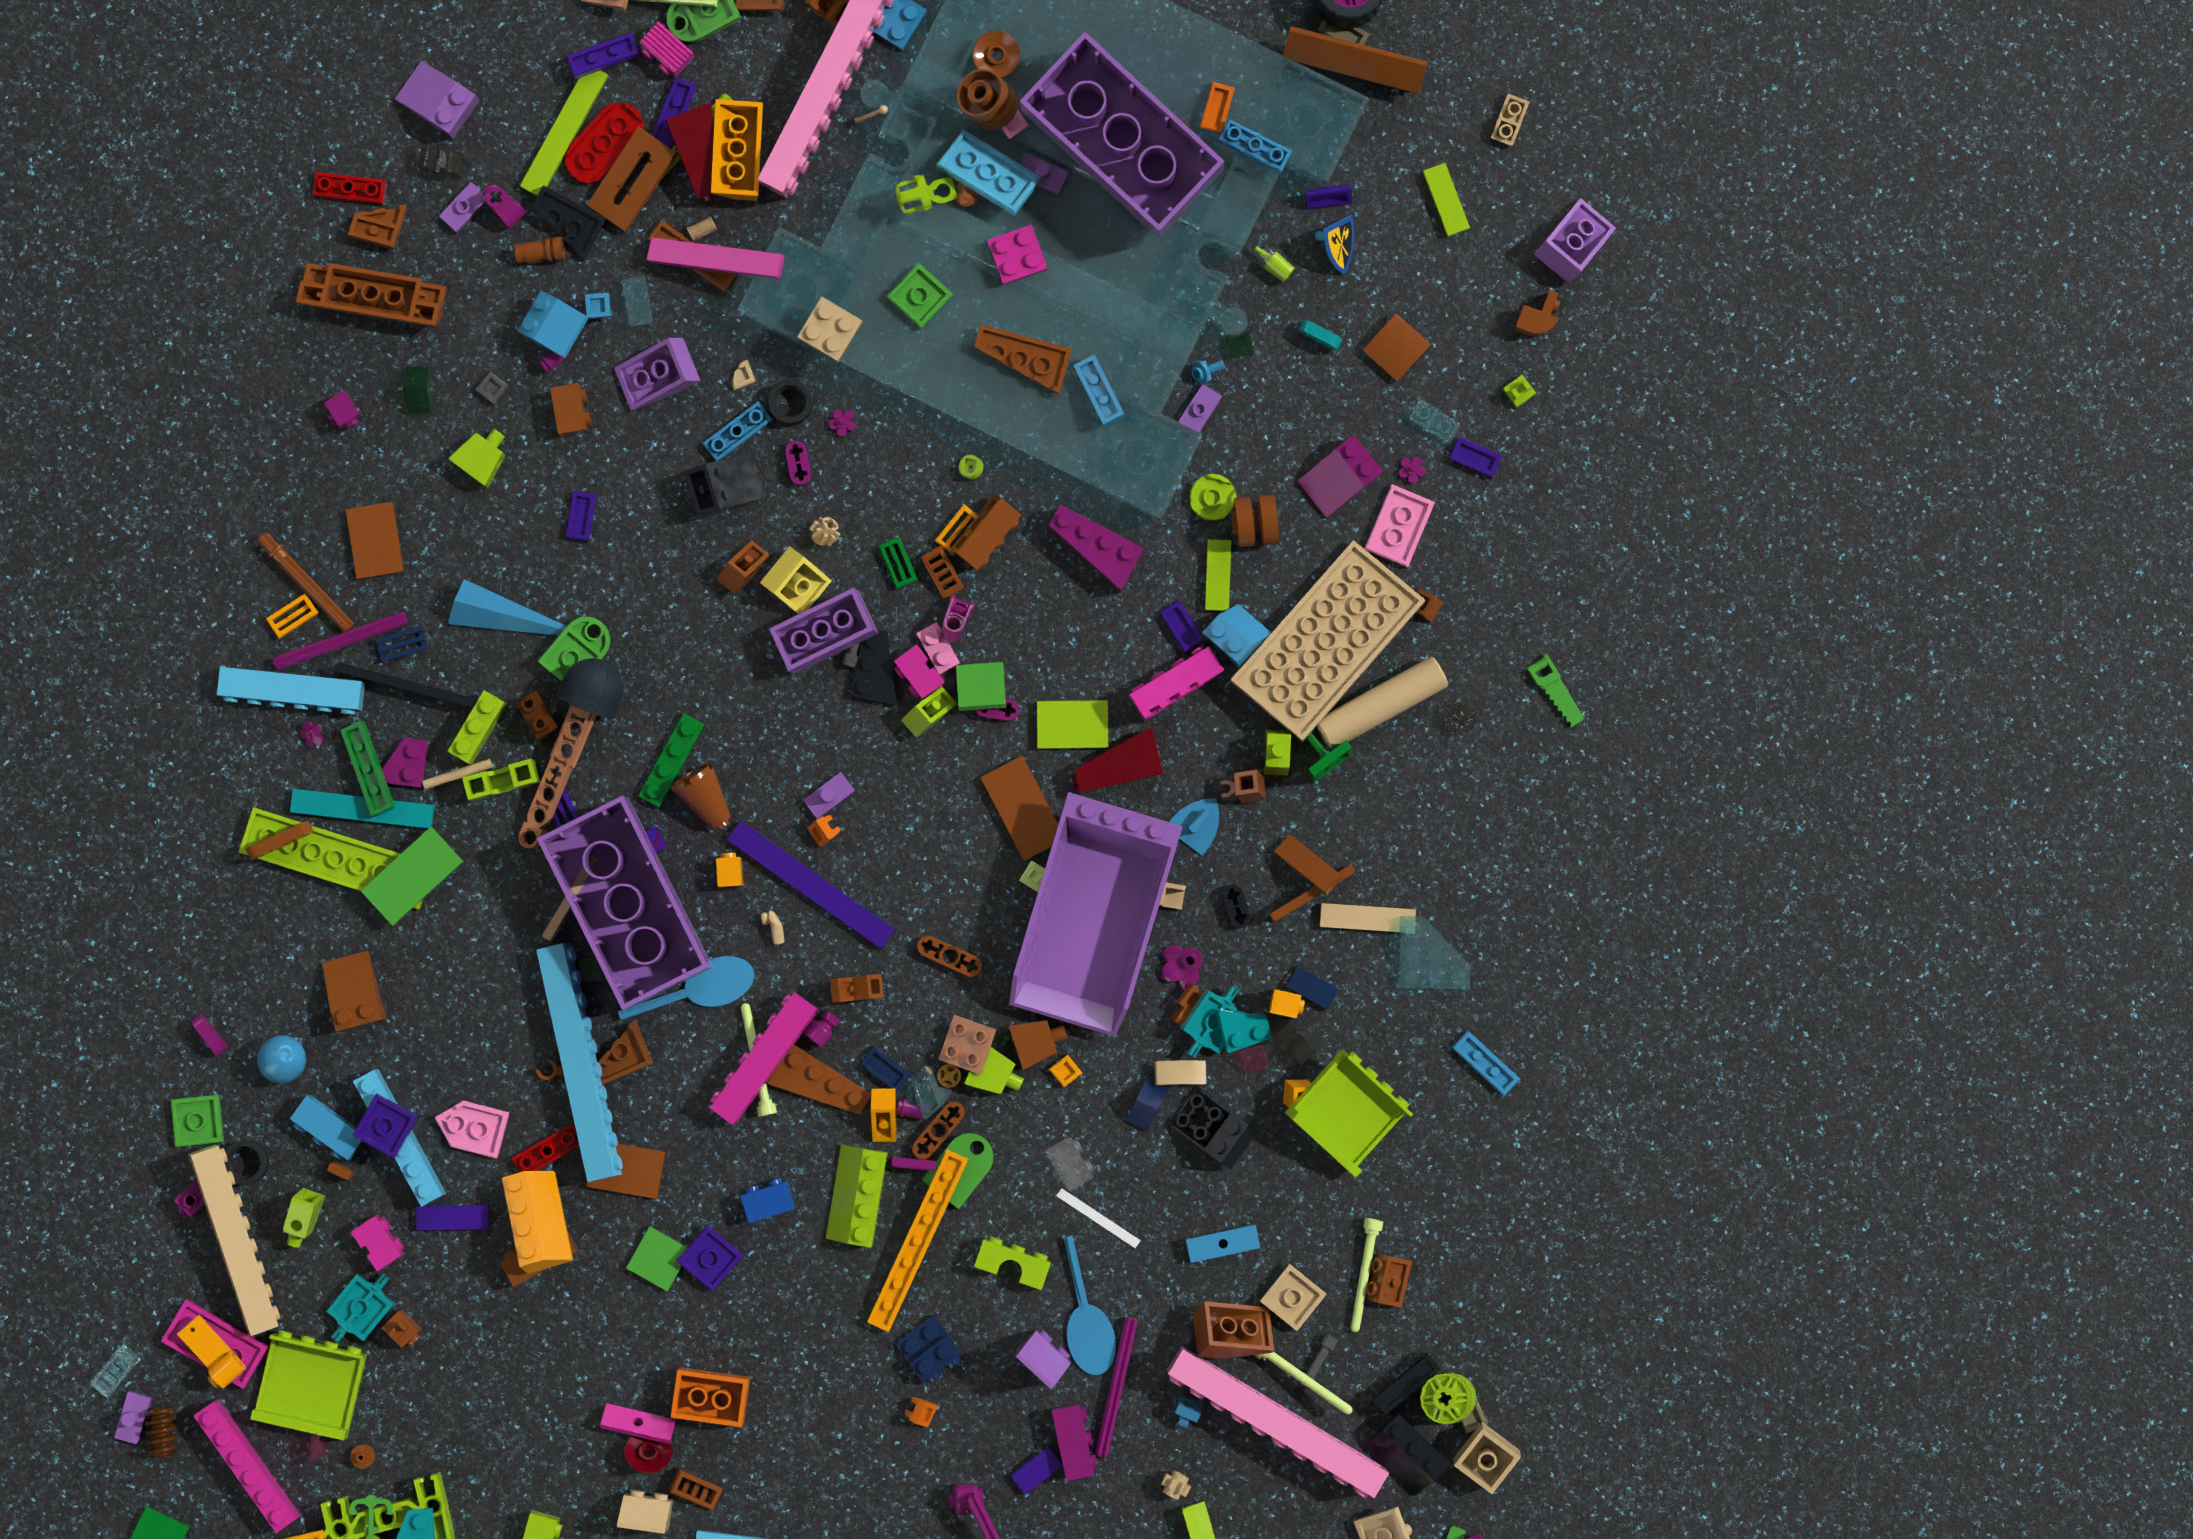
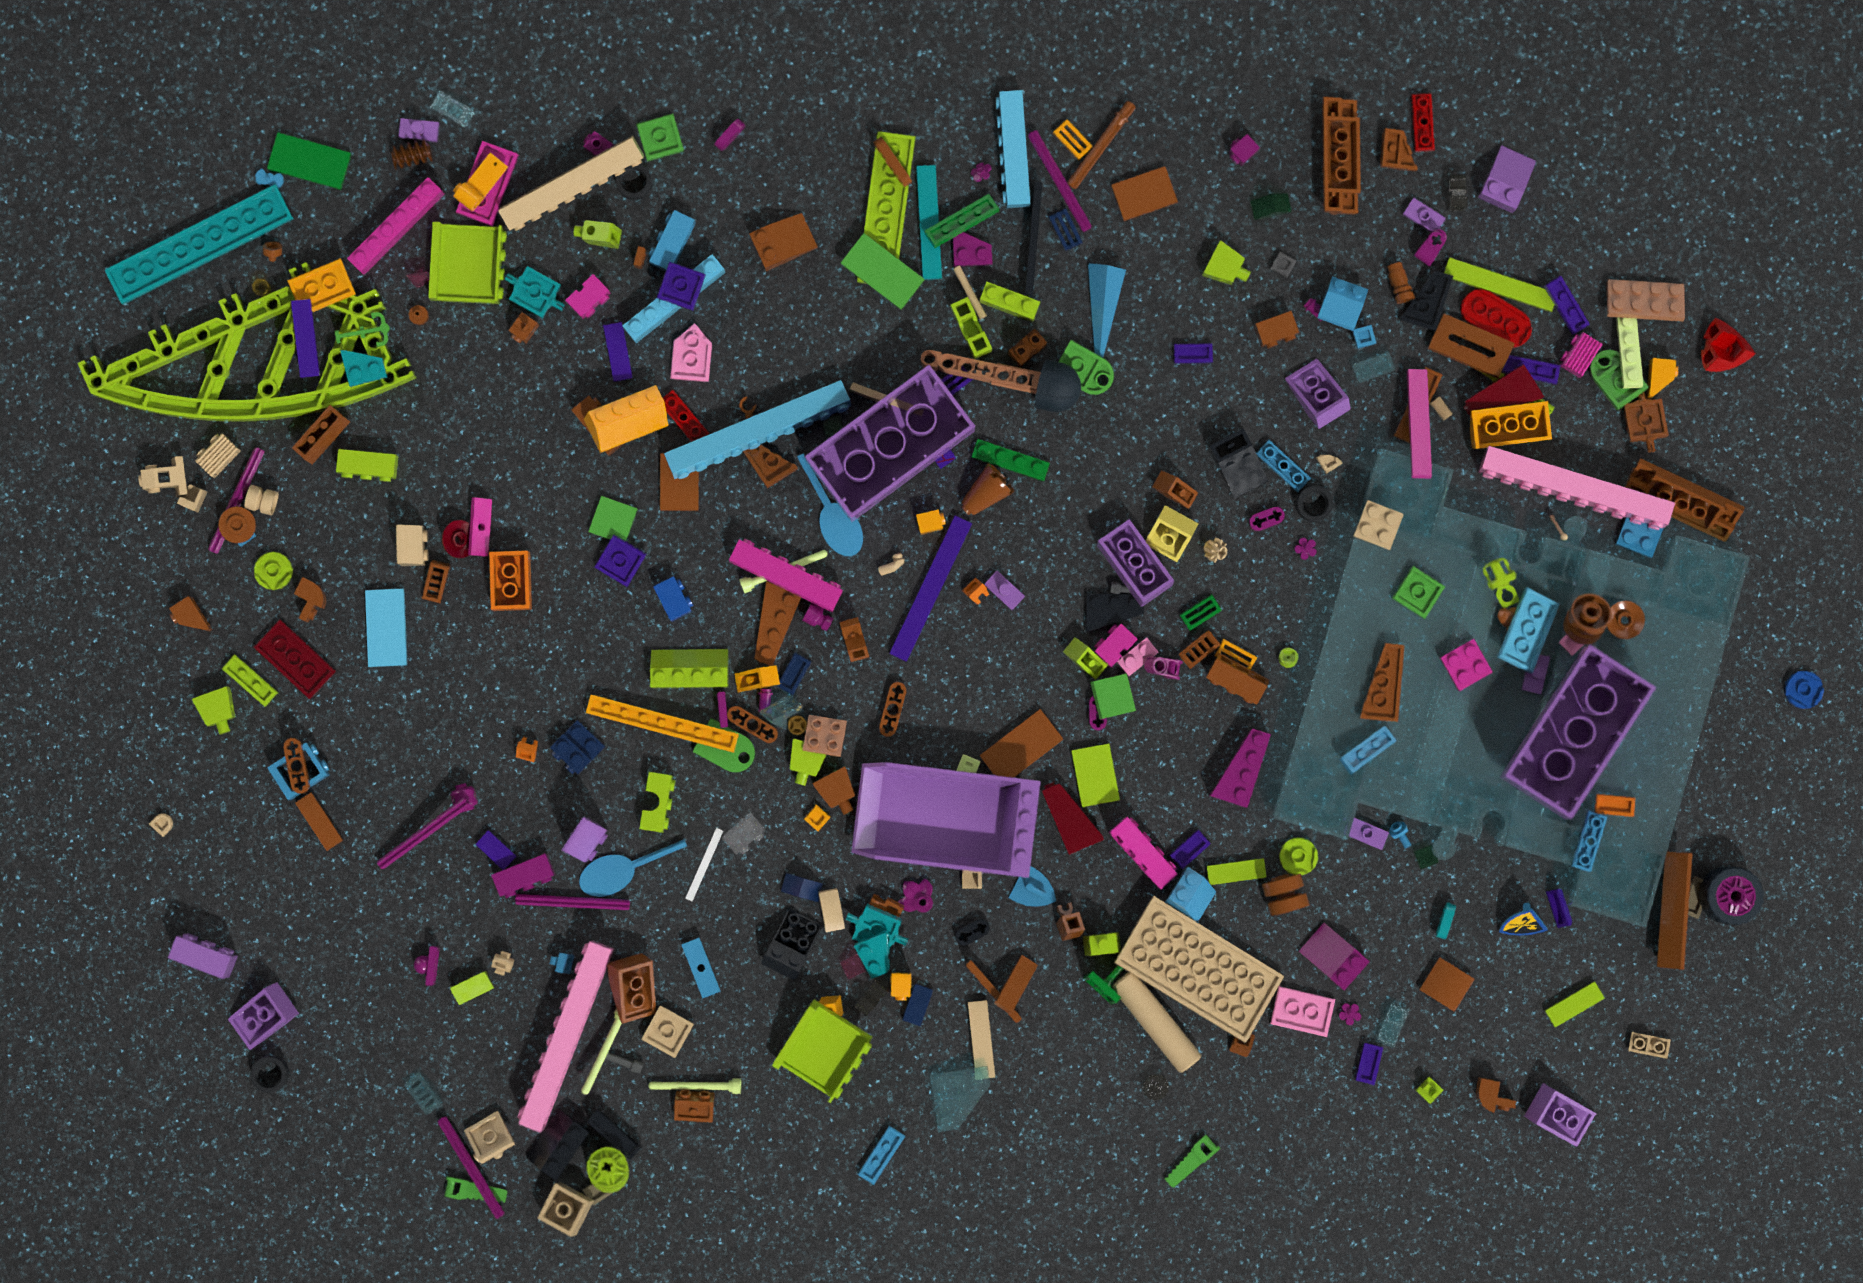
camera: 80 degrees right, 0 degrees up
(281, 1059) = (719, 194): dark azure piece -> none
(1274, 263) = (1497, 873): lime piece -> none

